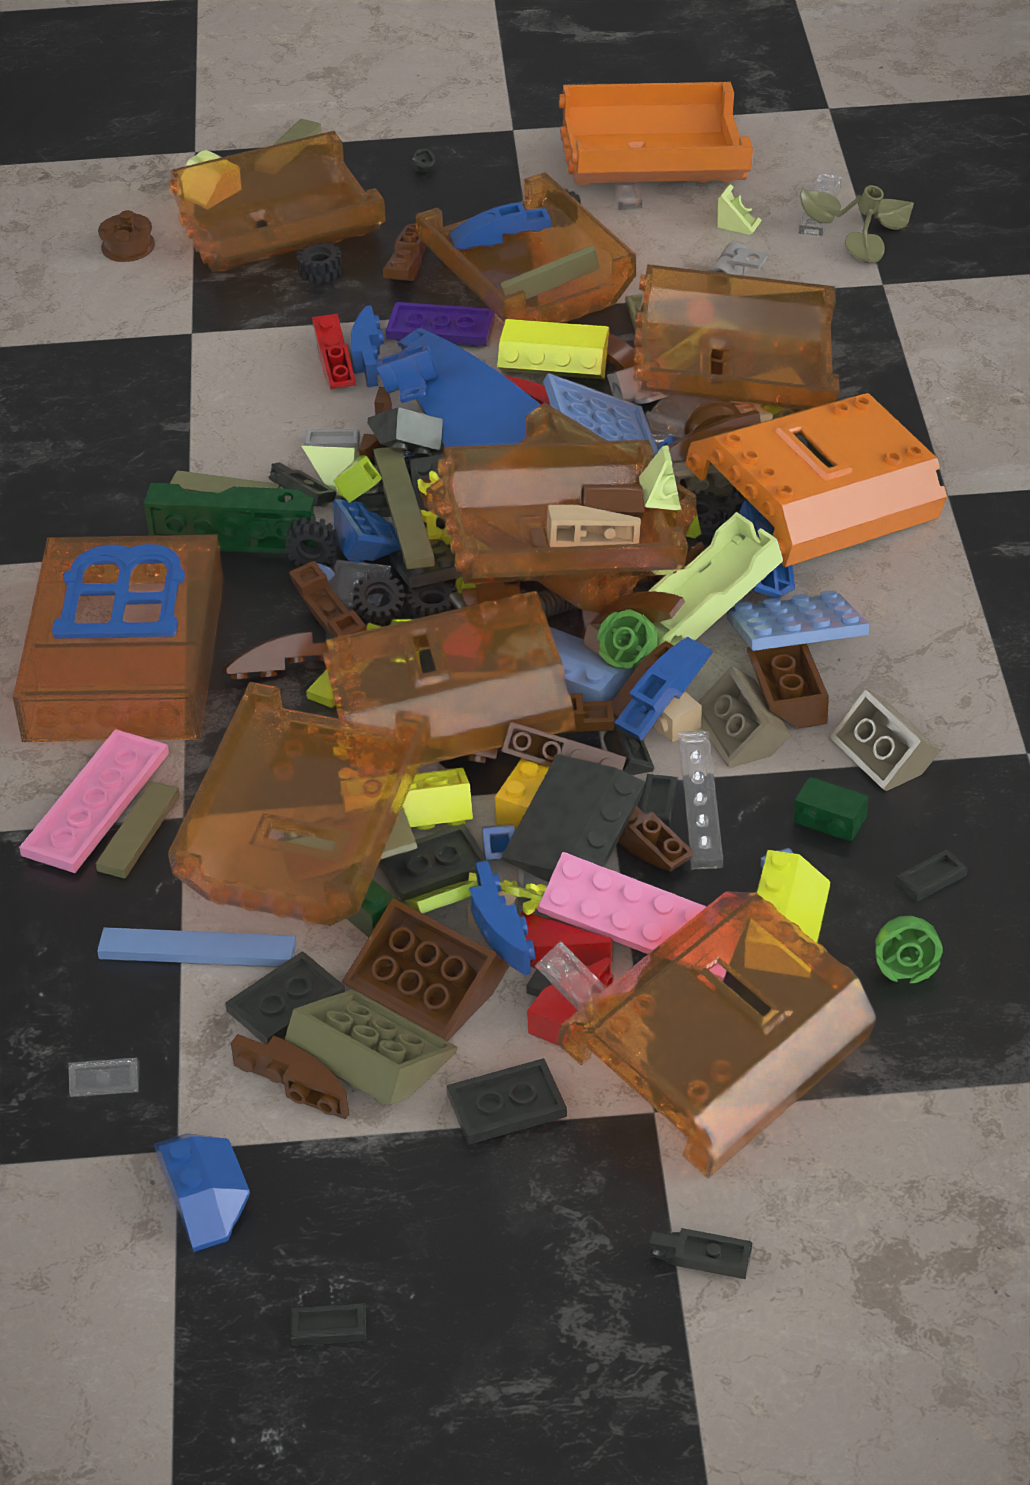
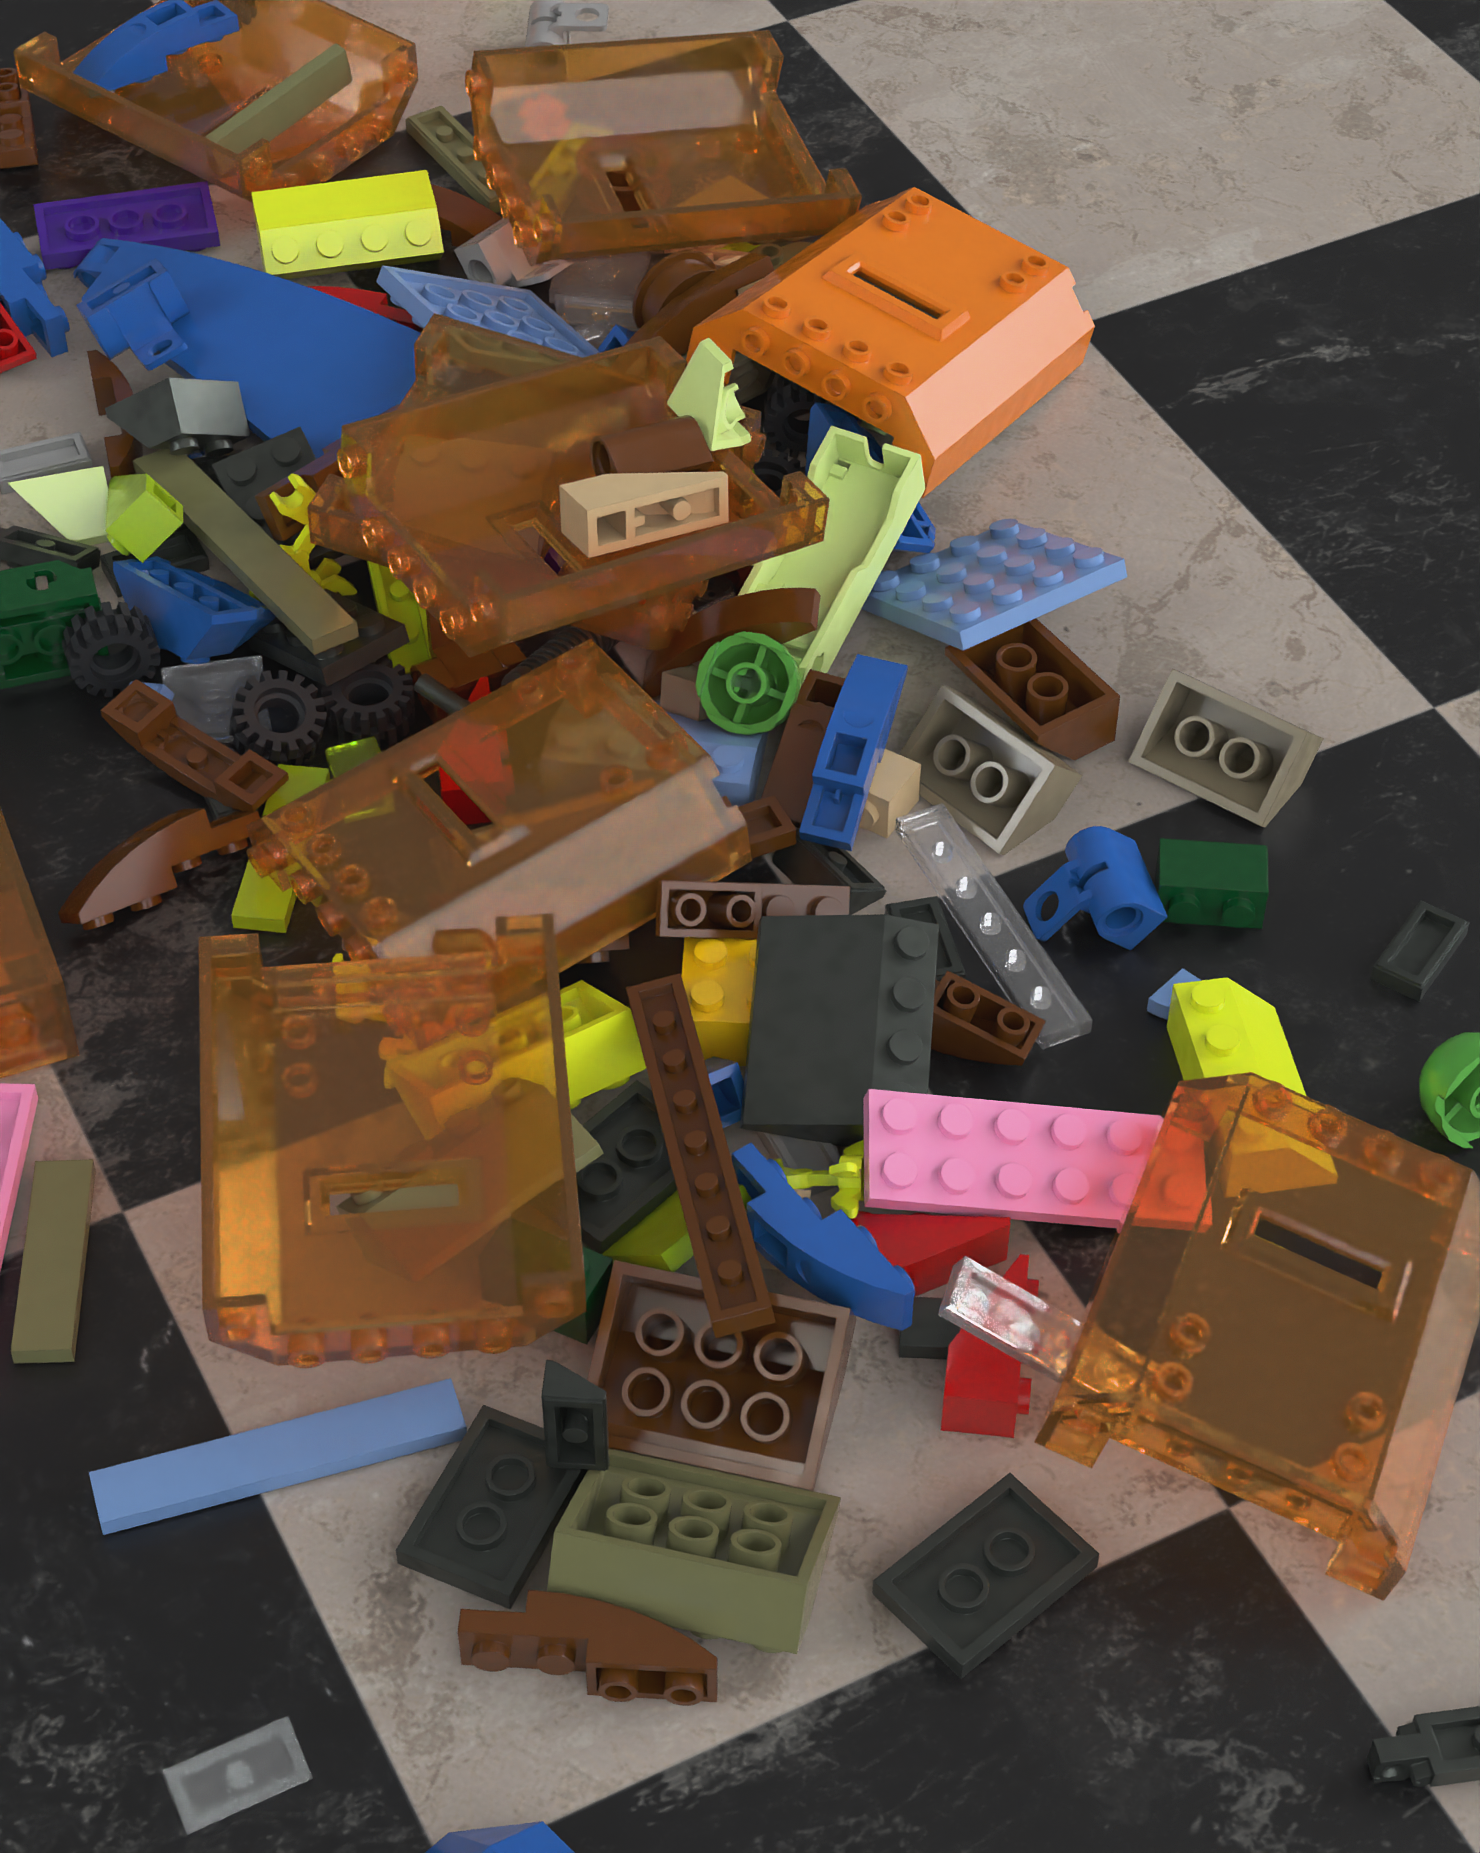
camera: 25 degrees left, 5 degrees up
(329, 963) = (574, 1420): none -> pearl dark grey slope
(459, 859) = (700, 1158): none -> reddish brown plate
(768, 792) = (1107, 882): none -> blue piece

